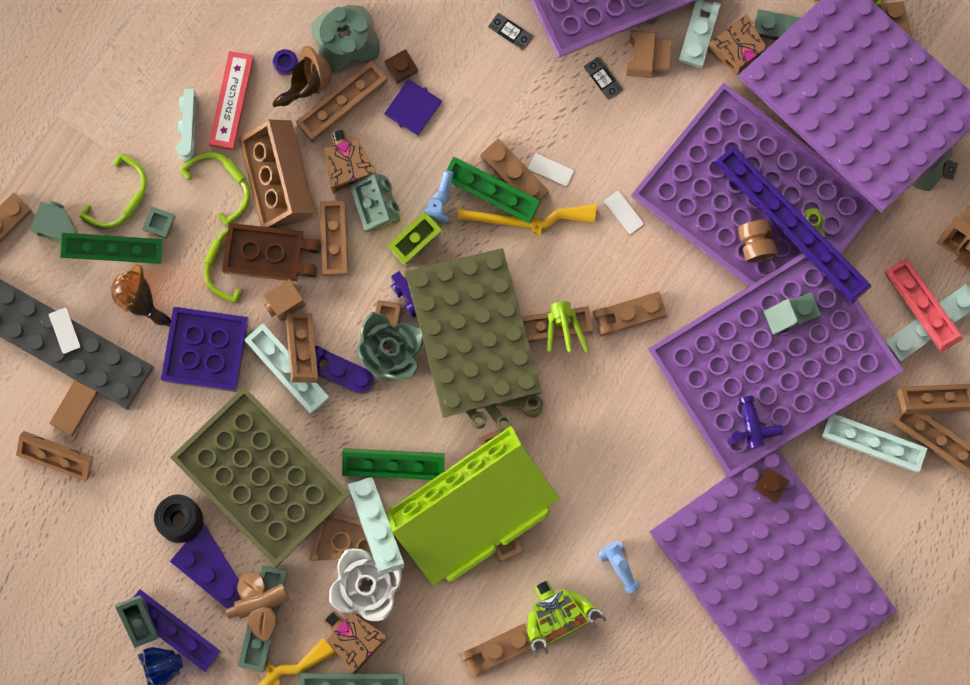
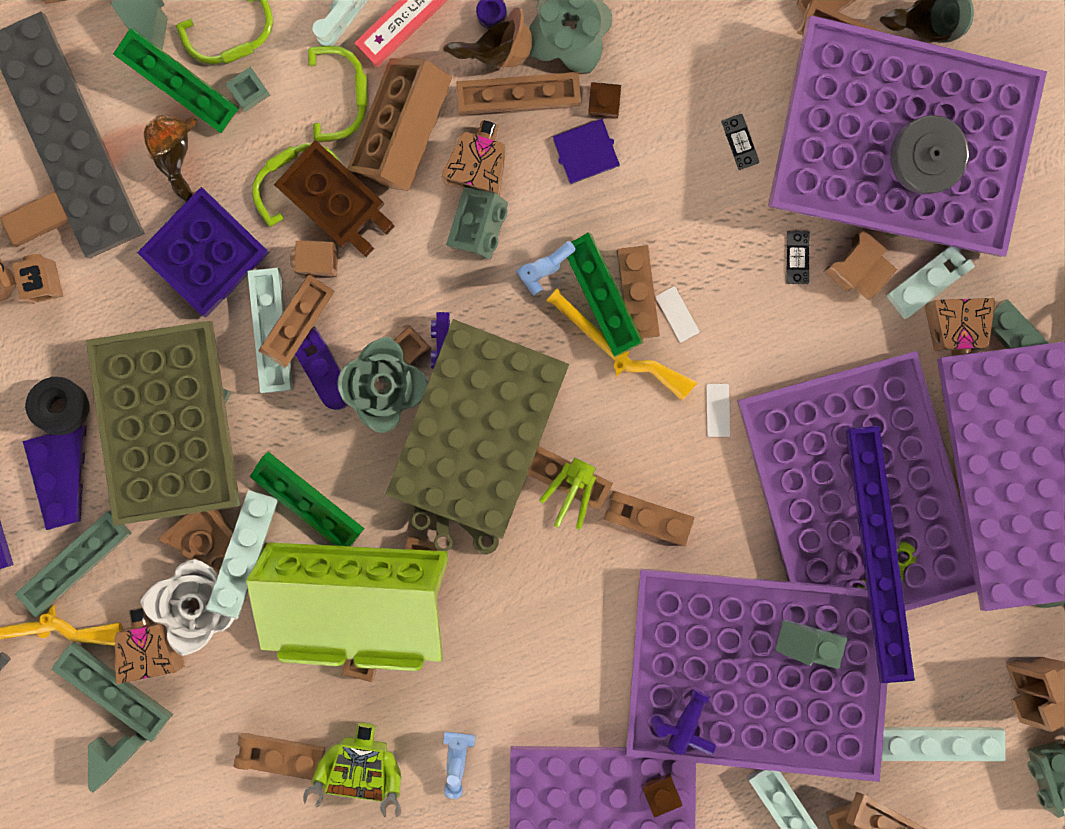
camera: 30 degrees right, 10 degrees up
(64, 330) = (76, 133): white sticker -> none
(104, 445) = (37, 279): none -> medium nougat brick
(258, 604) = (73, 548): medium nougat plant -> none
(333, 238) = (410, 230): medium nougat plate -> none
(414, 238) = (487, 290): lime brick -> none
(757, 240) = (831, 543): medium nougat wheel -> none
(923, 305) = (947, 724): coral tile -> none

